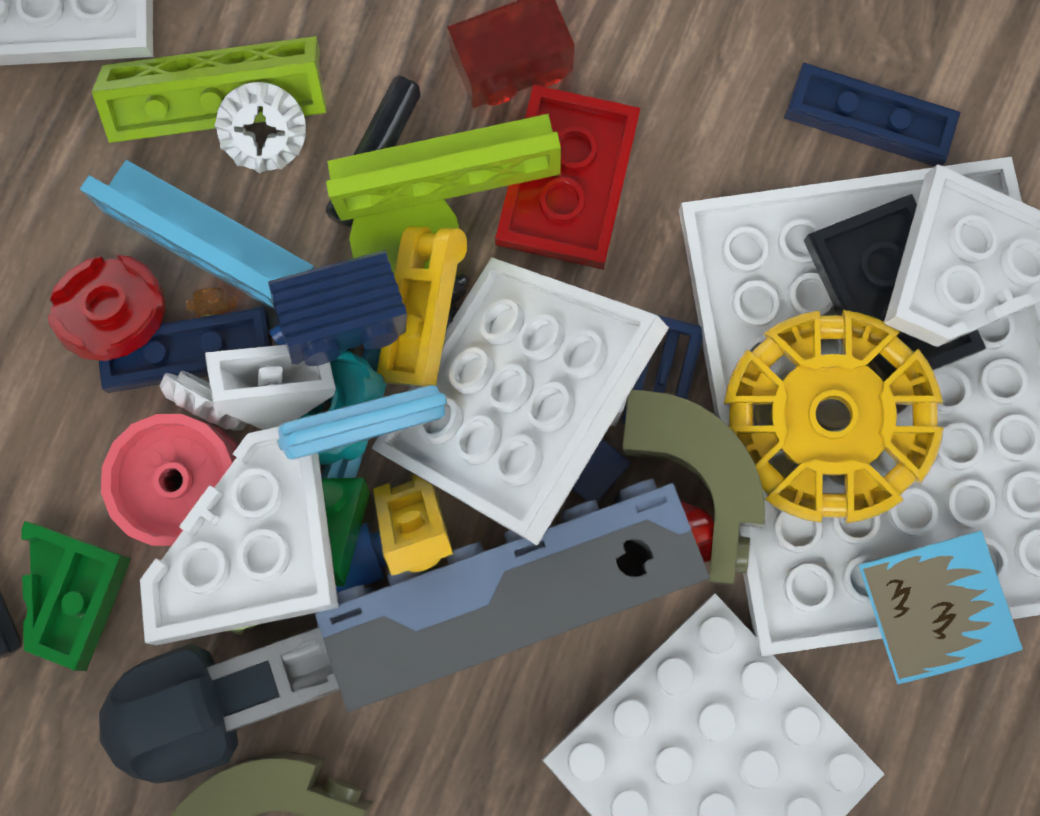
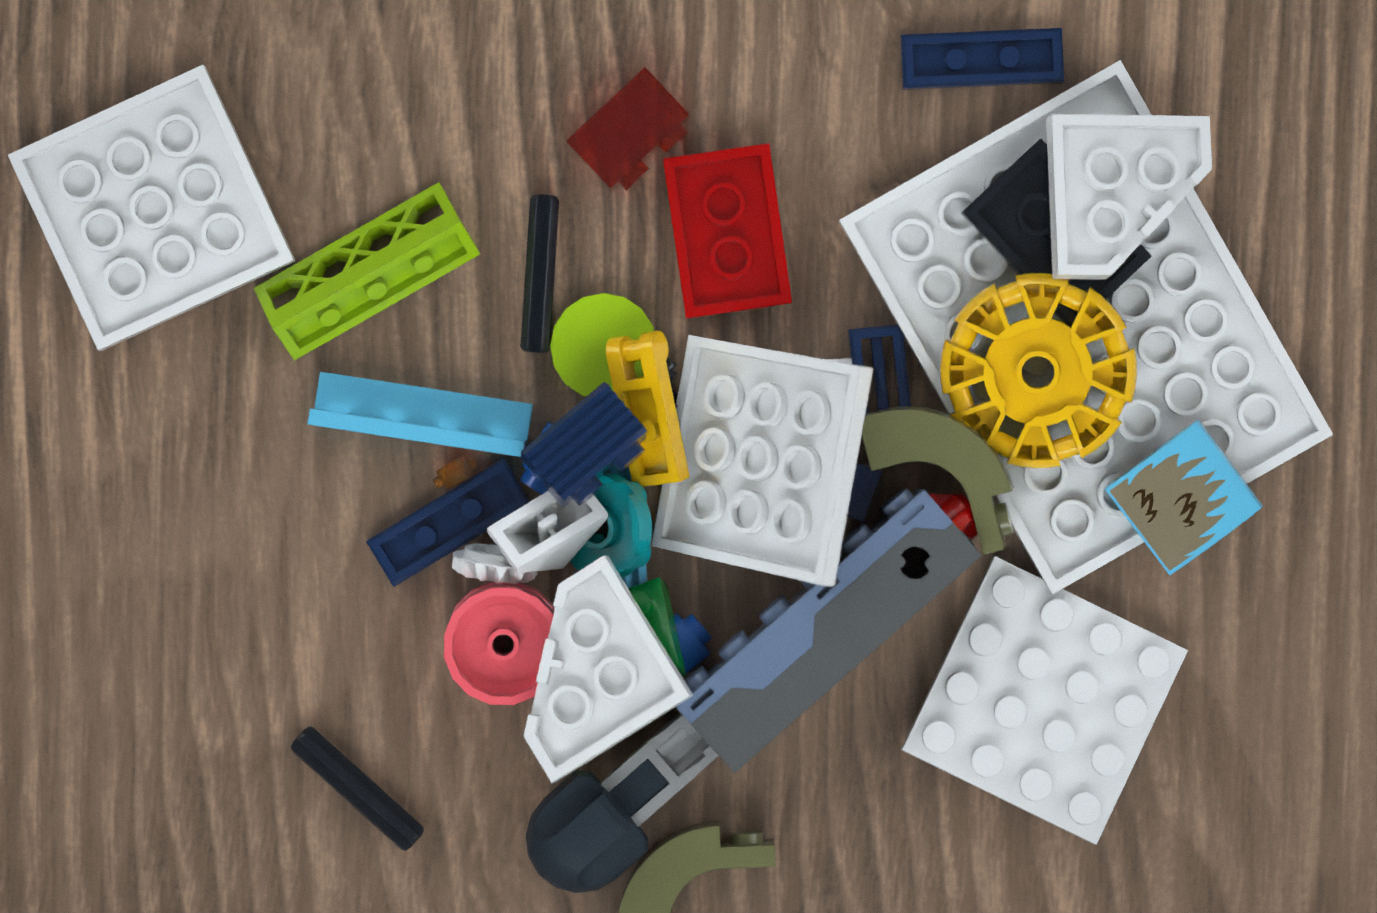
camera: 20 degrees left, 10 degrees up
(67, 595) = (446, 770): green wing -> none
(106, 307) = (366, 513): red tile -> none
(280, 111) = (411, 289): white gear -> none
(360, 422) = (649, 536): medium azure axle -> none
(411, 526) = (719, 602): yellow plate -> none
(444, 167) = (615, 272): lime fence -> none

